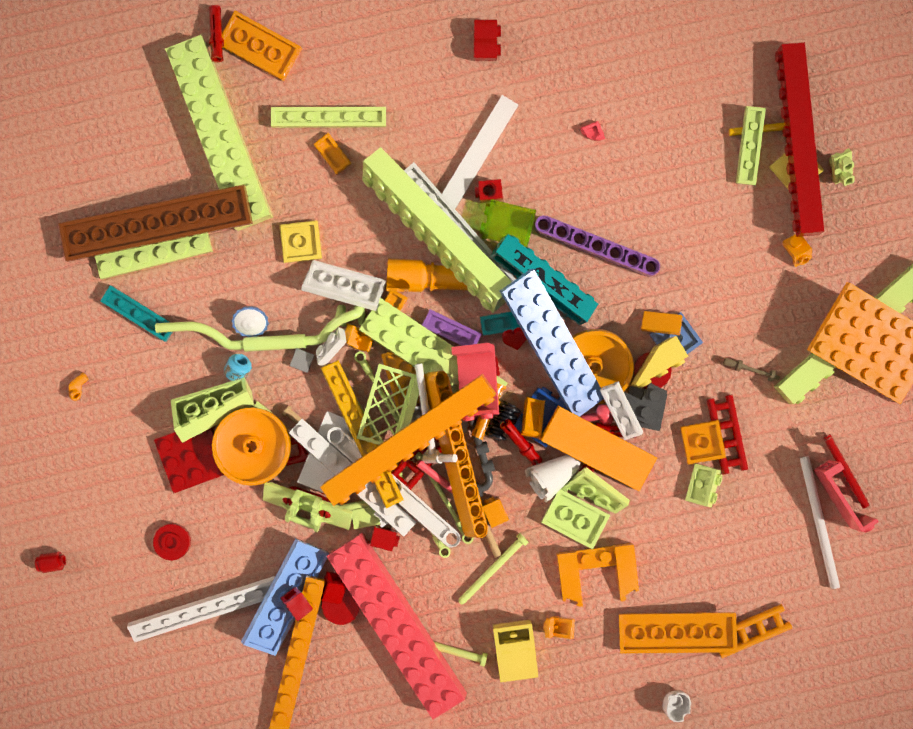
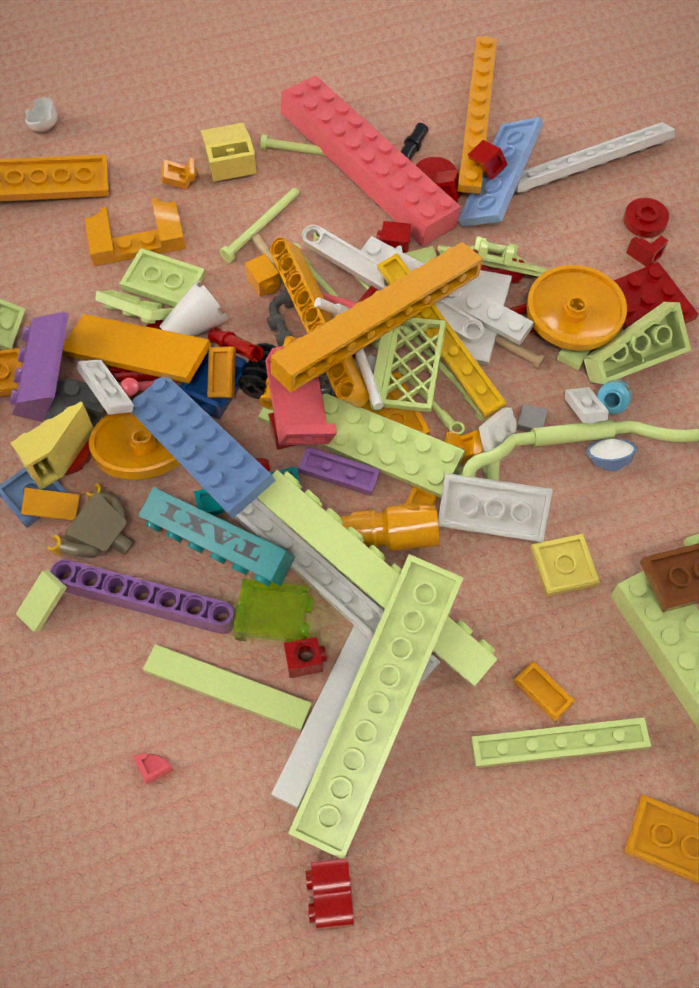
camera: 175 degrees right, 25 degrees down
(179, 507) = (646, 252): none -> red panel
(260, 362) = (586, 405): none -> white plate
(355, 641) = (413, 142): none -> black pin
(444, 144) = (375, 707): none -> yellowish green plate
(542, 178) = (228, 687): none -> yellowish green tile
(628, 300) = (95, 528): none -> dark tan torso
(666, 248) = (41, 600): none -> yellowish green tile
(671, 438) = (39, 366): none -> medium lavender slope

